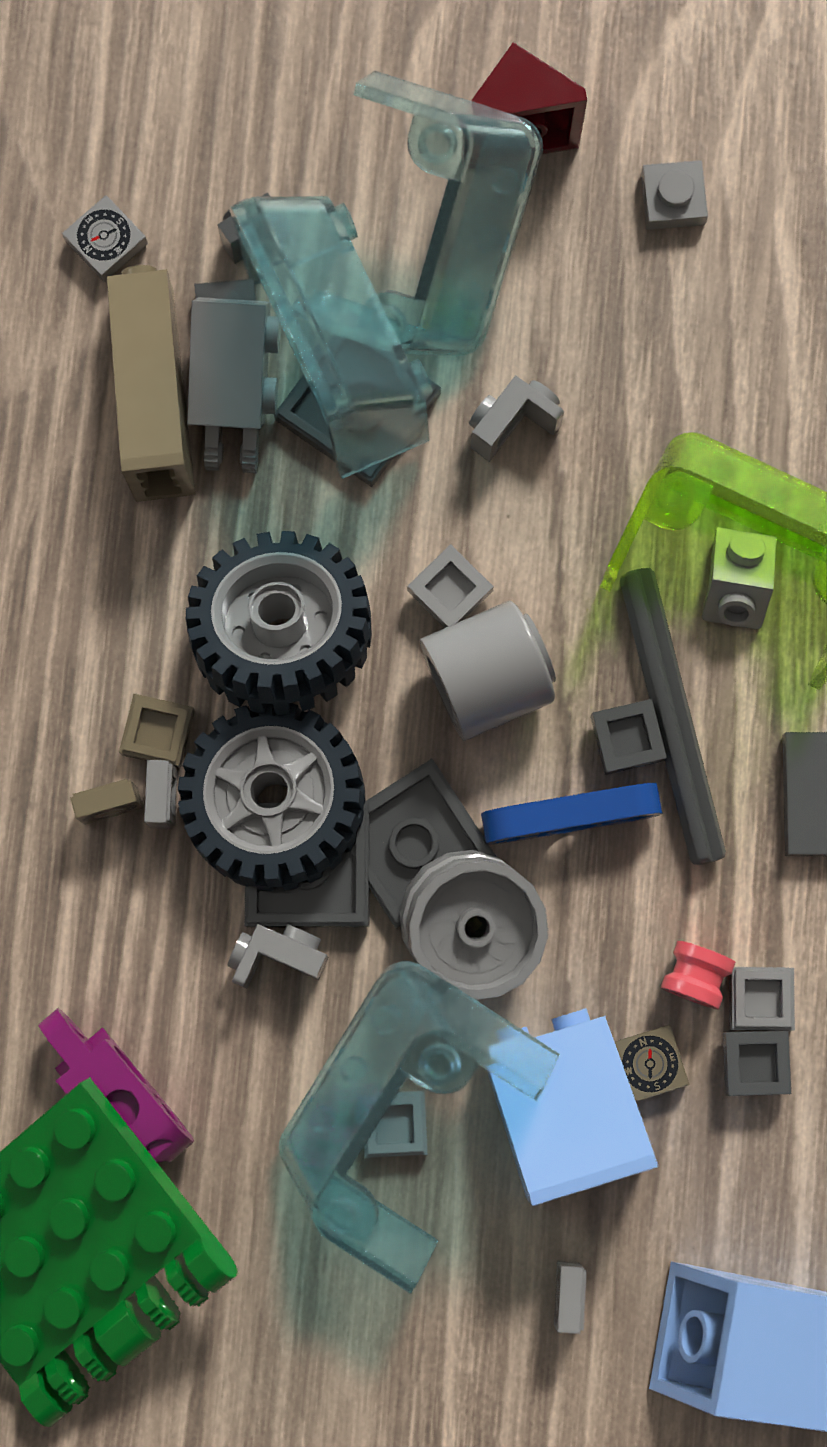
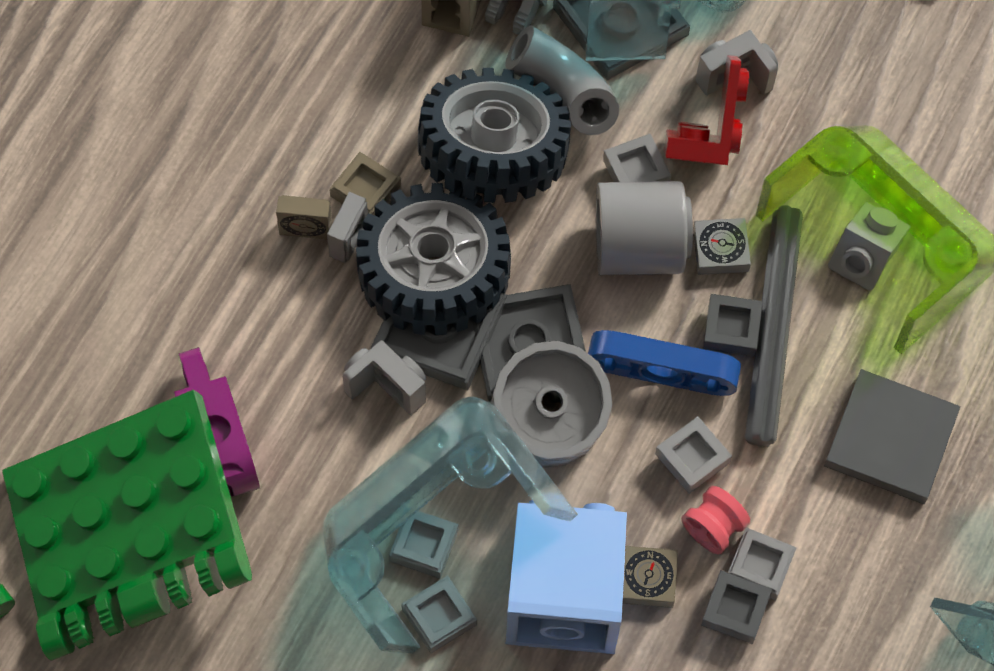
camera: 20 degrees right, 15 degrees down
(334, 515) = (581, 87): none -> light grey cylinder
(444, 1198) = (439, 614): none -> light grey tile
(522, 541) = (694, 140): none -> red bracket
(578, 643) = (721, 246): none -> light grey tile
(644, 907) = (693, 454): none -> light grey plate

